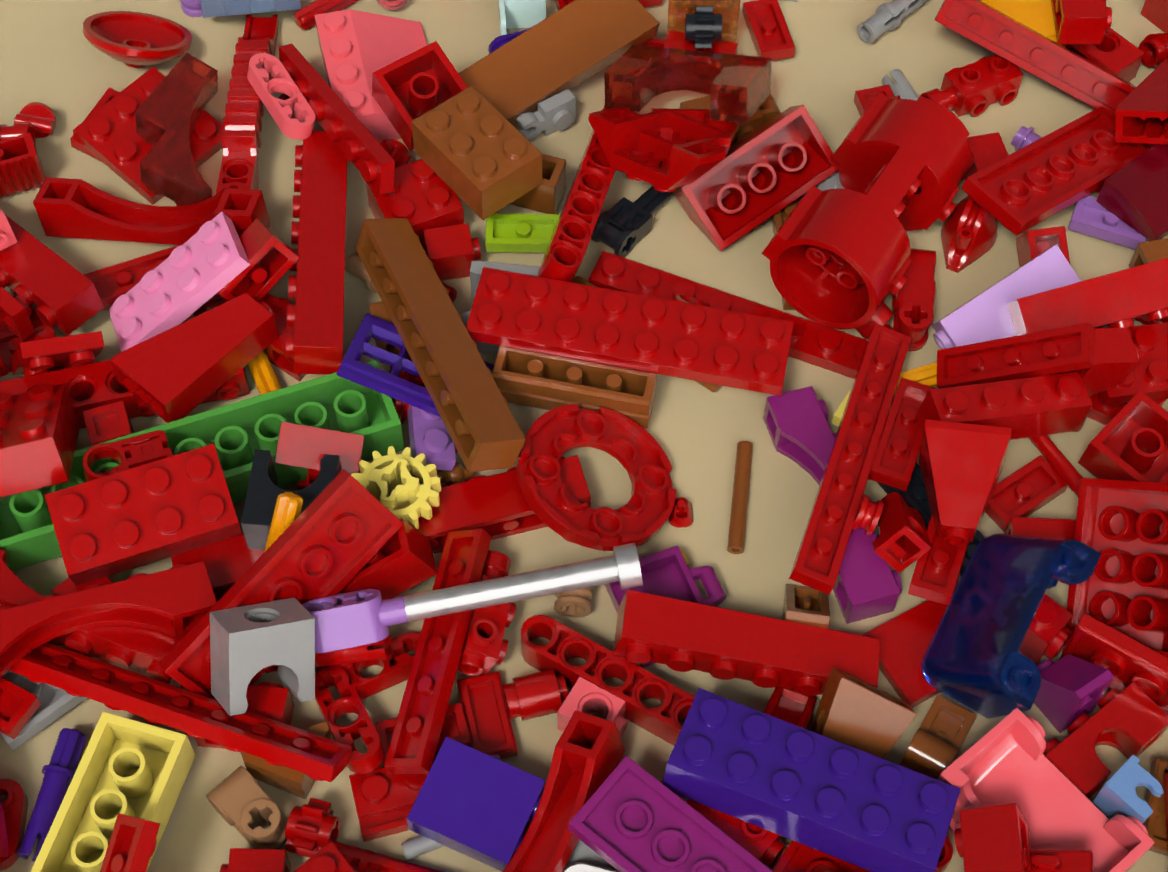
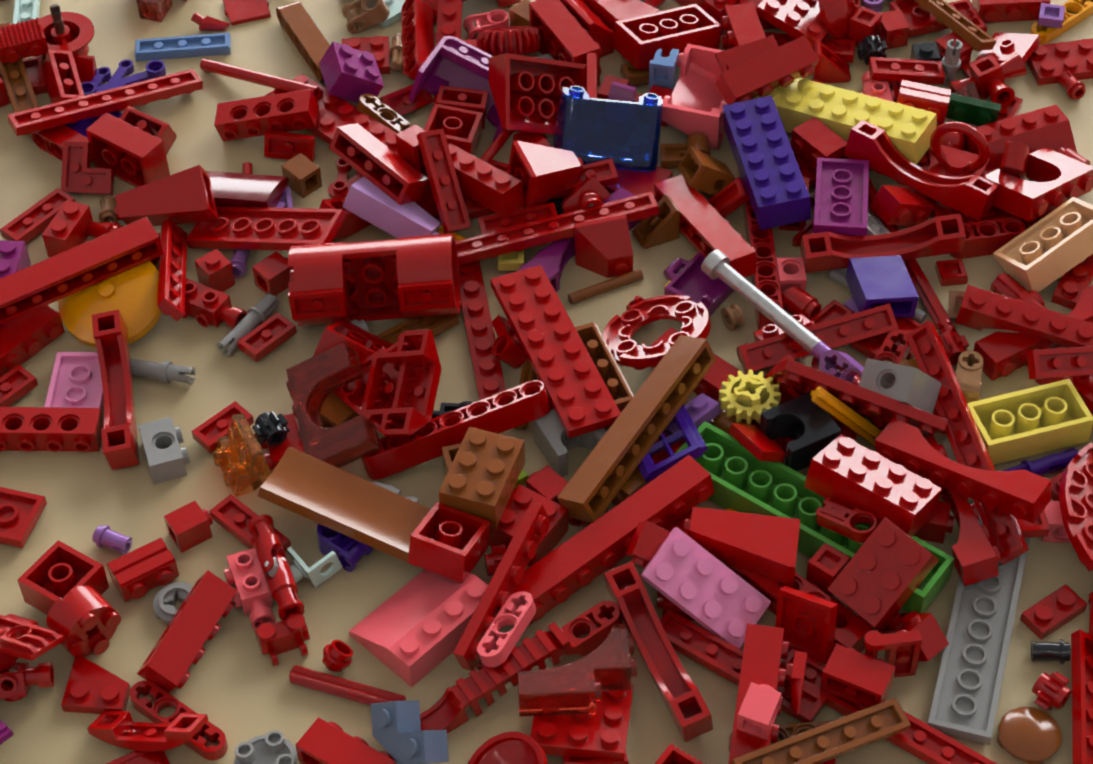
camera: 120 degrees left, 10 degrees down
(785, 511) = (604, 246): none -> red slope
(1021, 105) = (215, 271): none -> red brick

